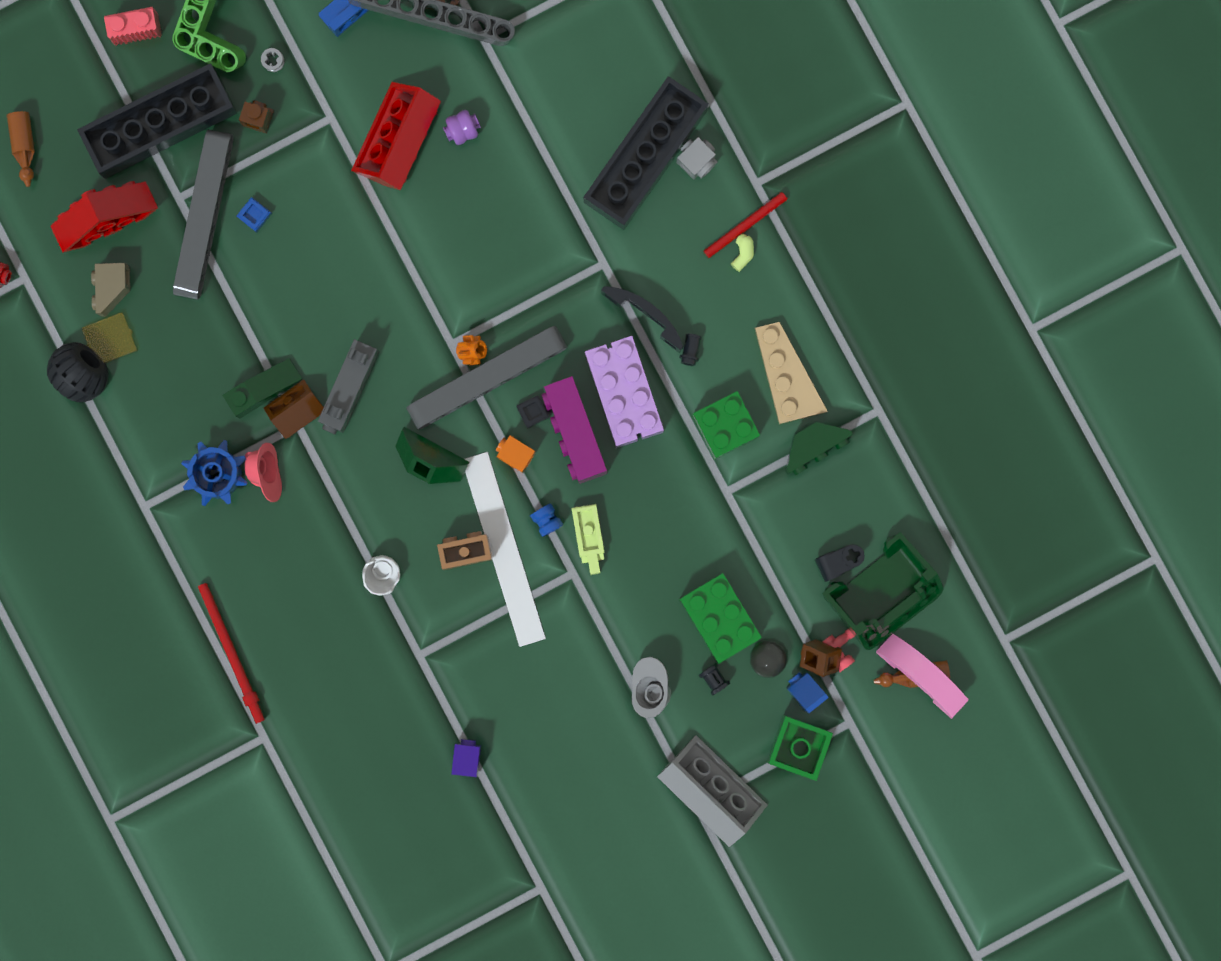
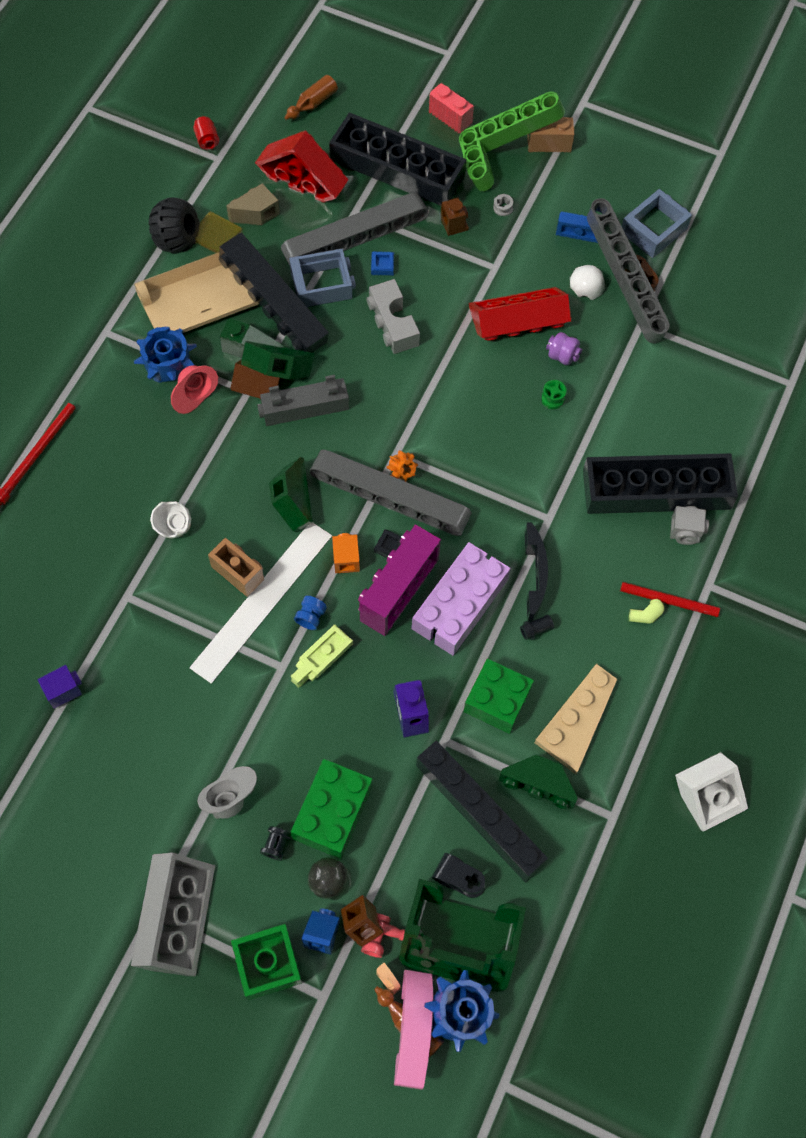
camera: 50 degrees right, 20 degrees down
(161, 398) = (192, 295): none -> tan door
(204, 294) = (320, 262): none -> sand blue window
(224, 339) = (272, 294): none -> black brick
(295, 384) = (277, 360): none -> dark green slope
(339, 256) = (398, 332): none -> light grey arch
(409, 51) = (587, 281): none -> white hair
(495, 166) = (551, 389): none -> green wheel
(684, 499) = (410, 706): none -> dark purple torso
(804, 508) = (481, 811): none -> black brick
(871, 668) = (388, 978): none -> light nougat tile
(917, 322) = (712, 791): none -> white slope
(950, 630) = (472, 999): none -> blue brick

